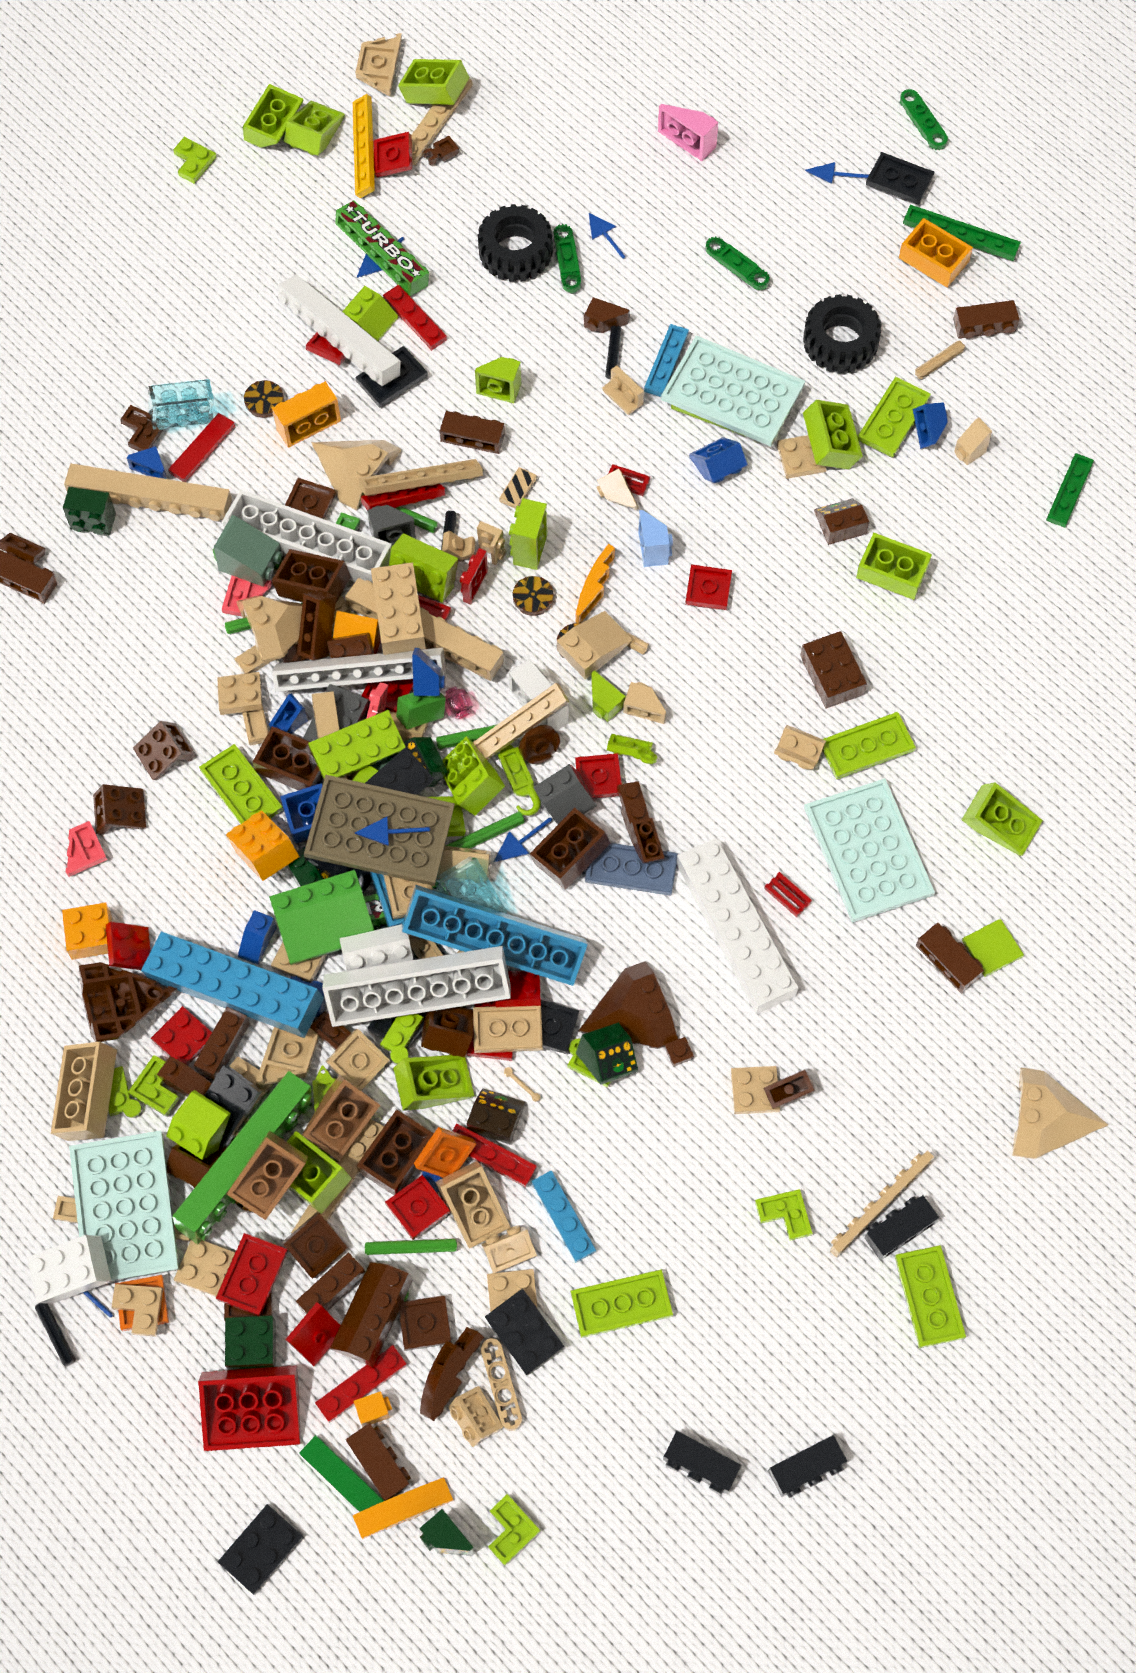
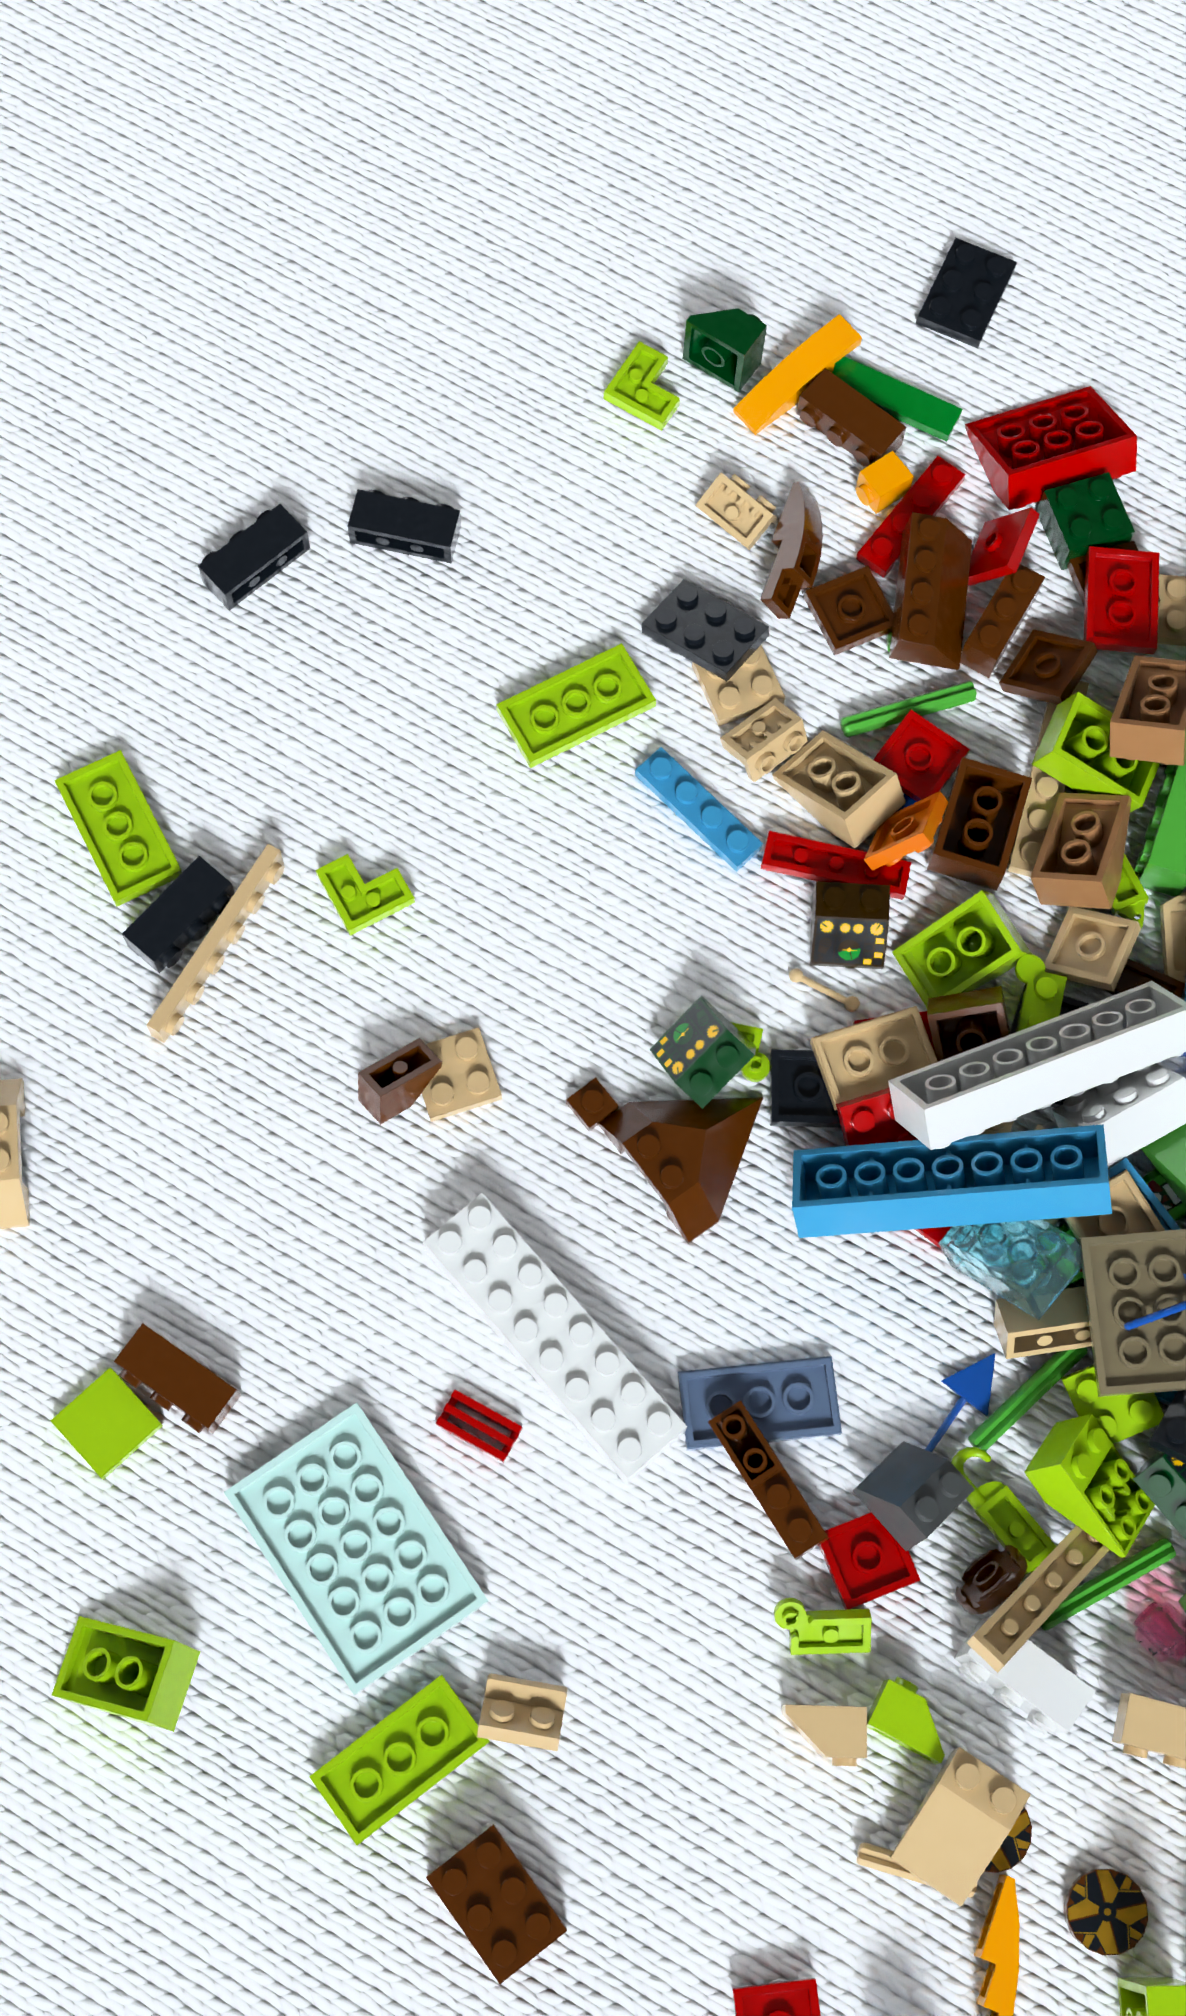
camera: 160 degrees right, 5 degrees up
(501, 1384) = (719, 559): tan beam -> none
(570, 848) = (874, 1392): reddish brown brick -> none

